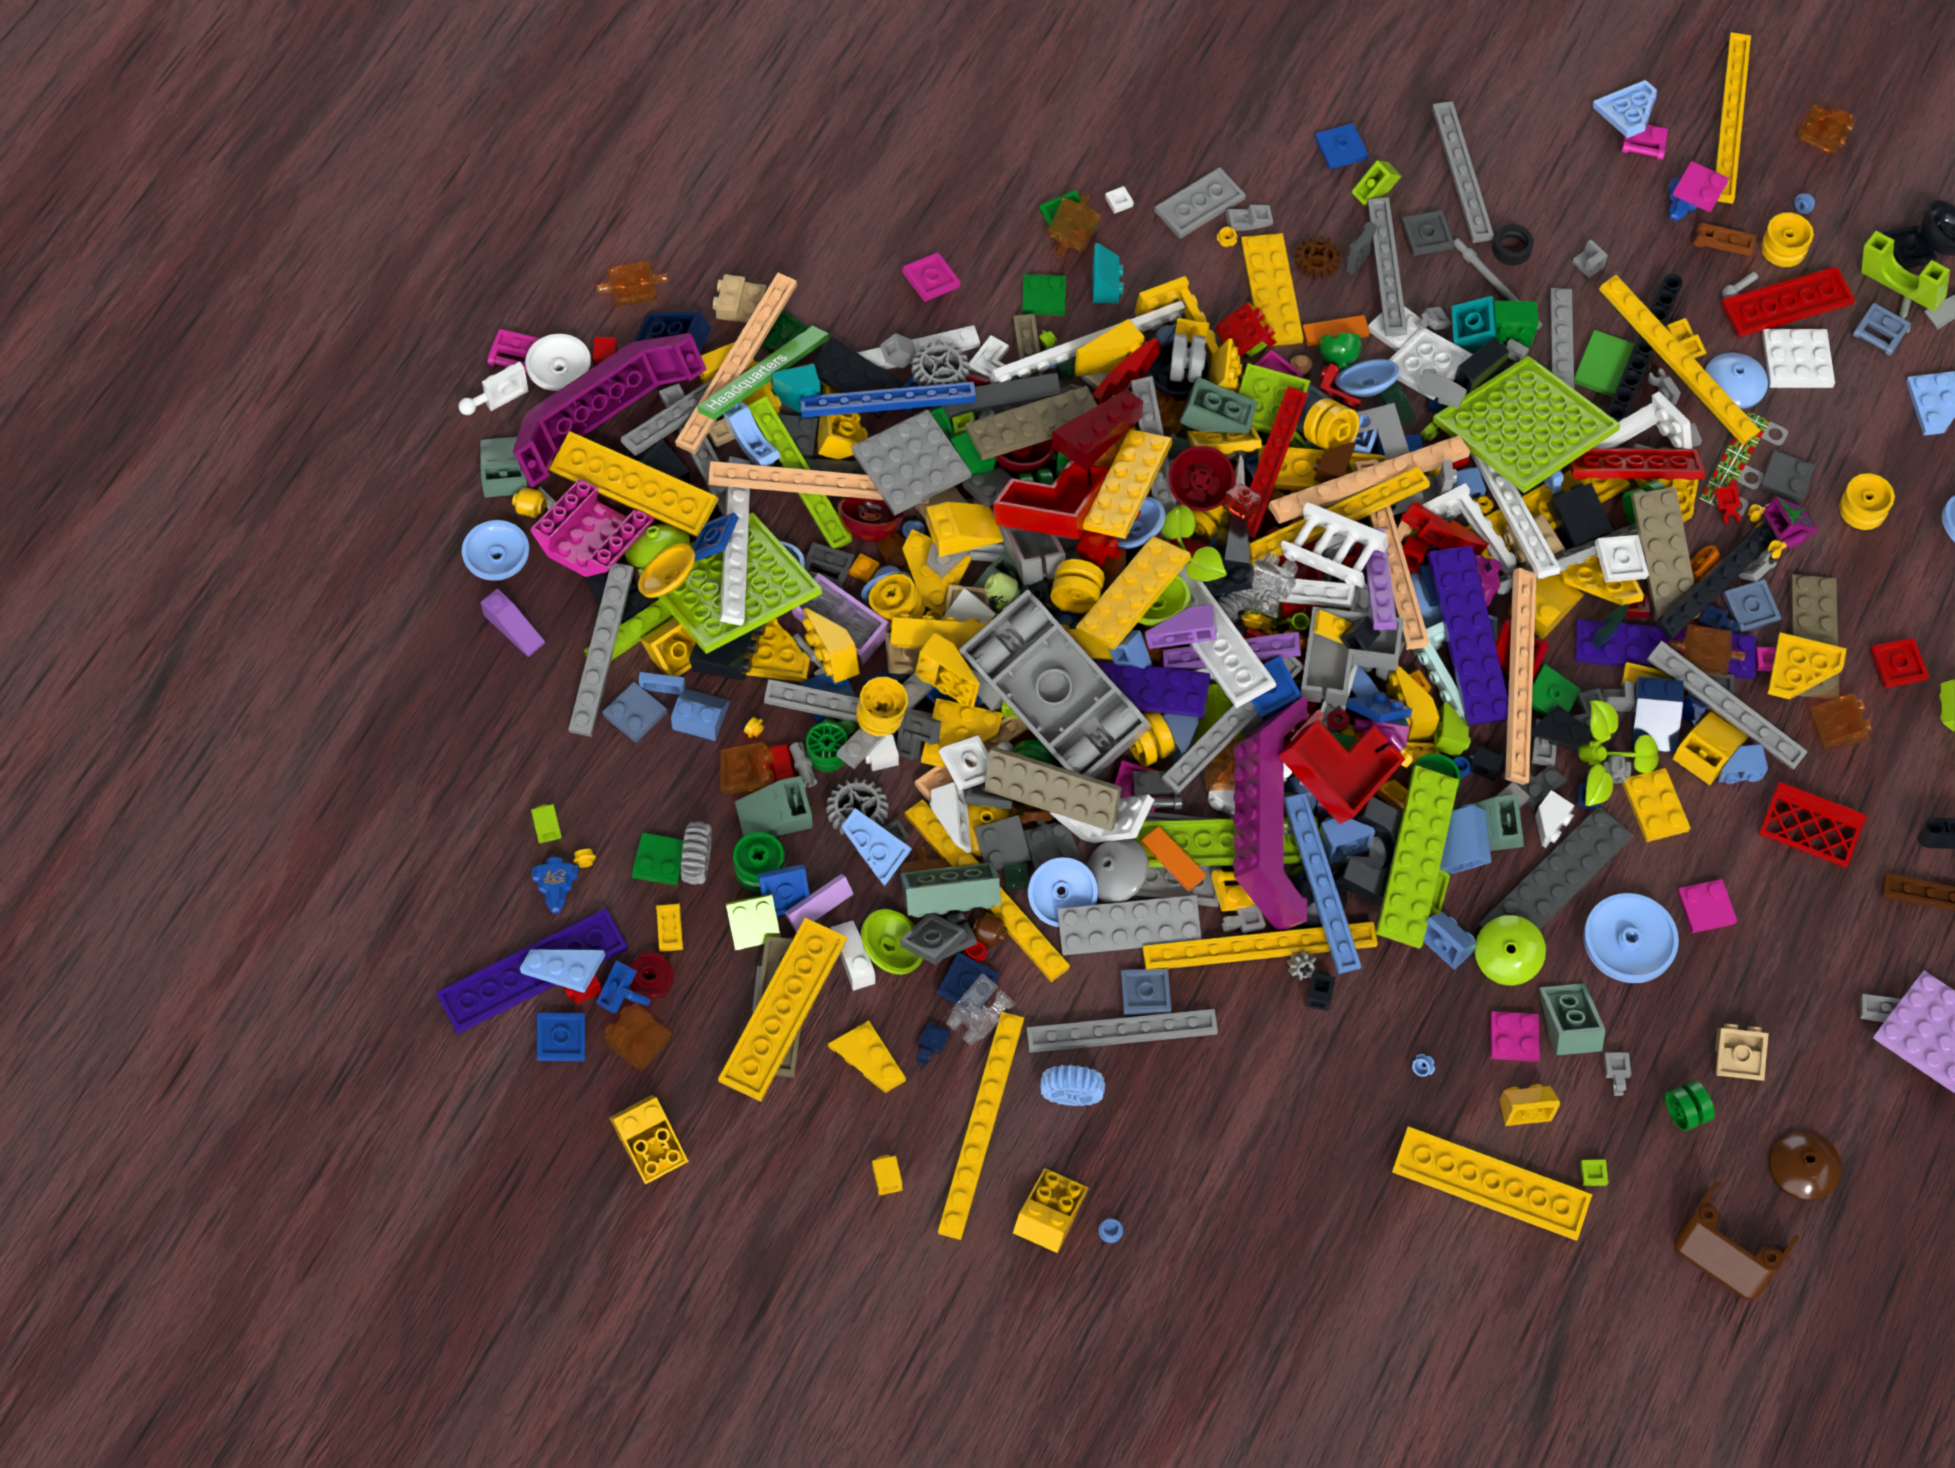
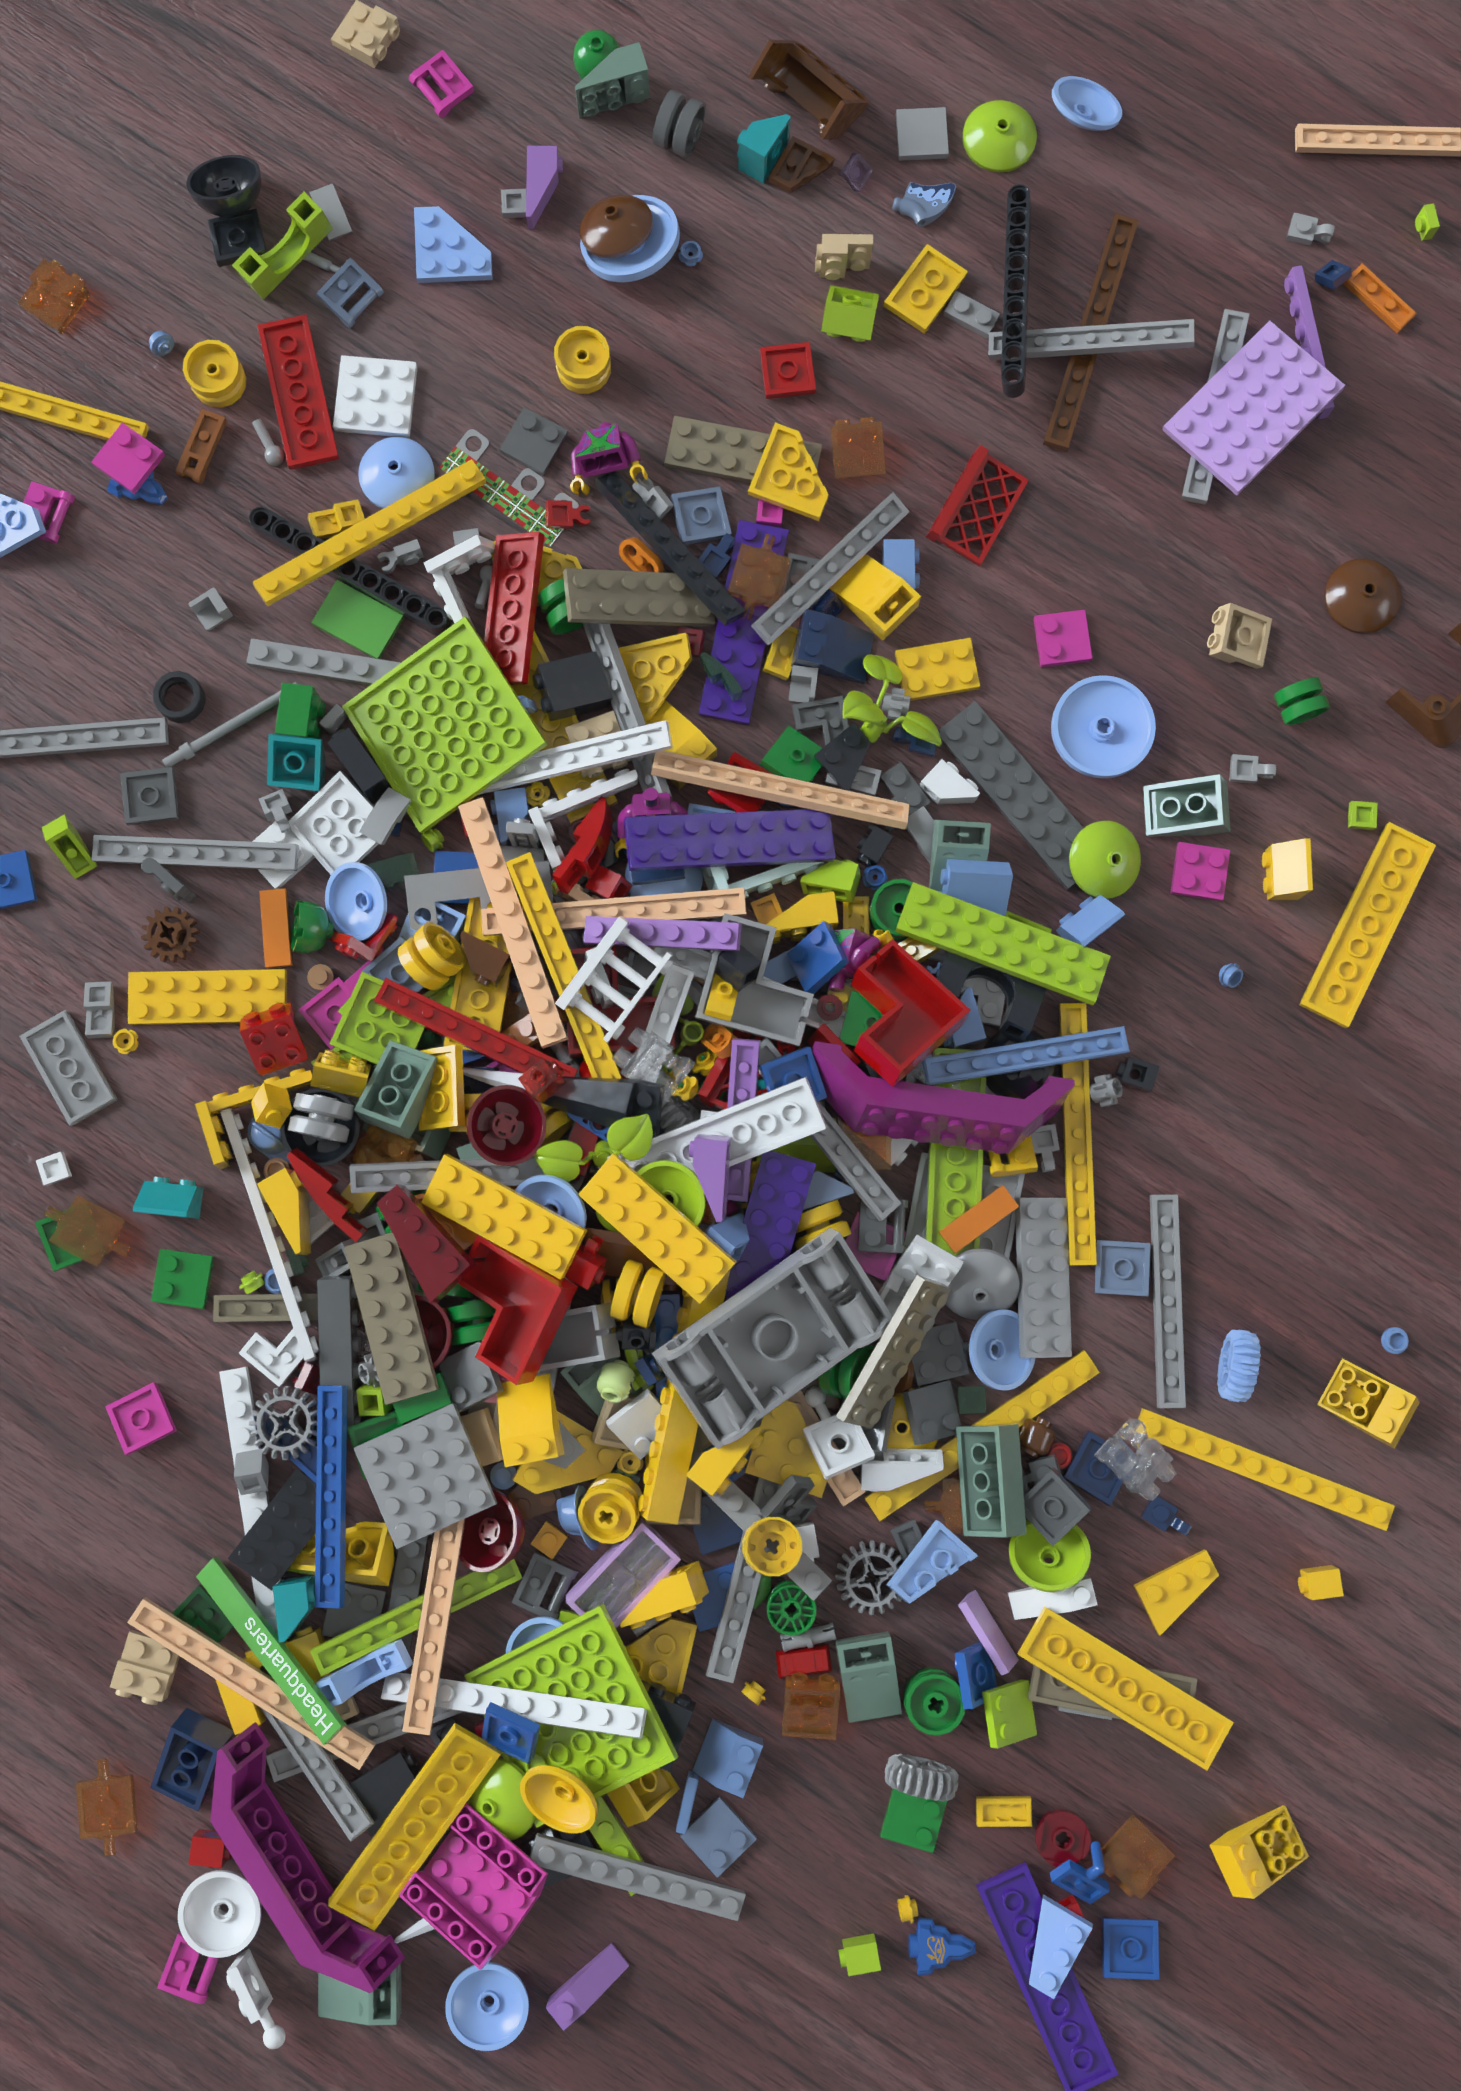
camera: 85 degrees left, 20 degrees up
(529, 502) = (420, 1957): yellow head -> none
(1621, 558) = (640, 648): white plate -> none

